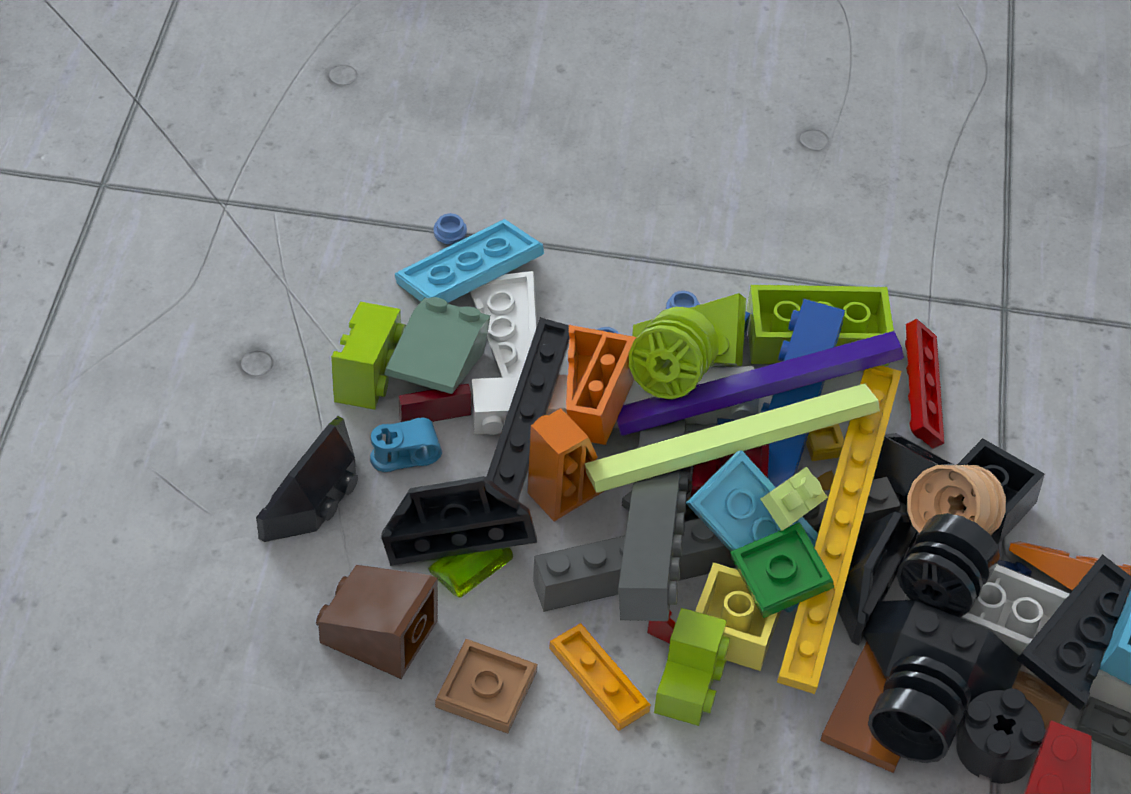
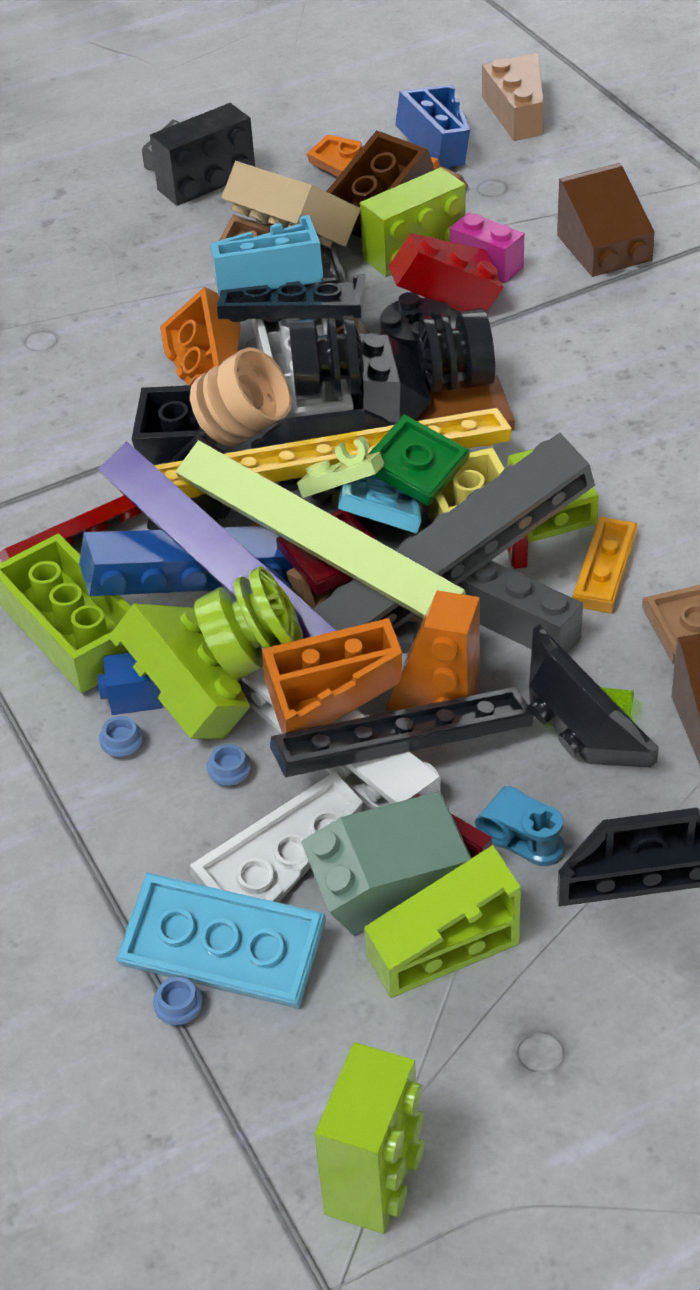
camera: 120 degrees left, 5 degrees down
(261, 217) = (369, 1138): none -> lime brick

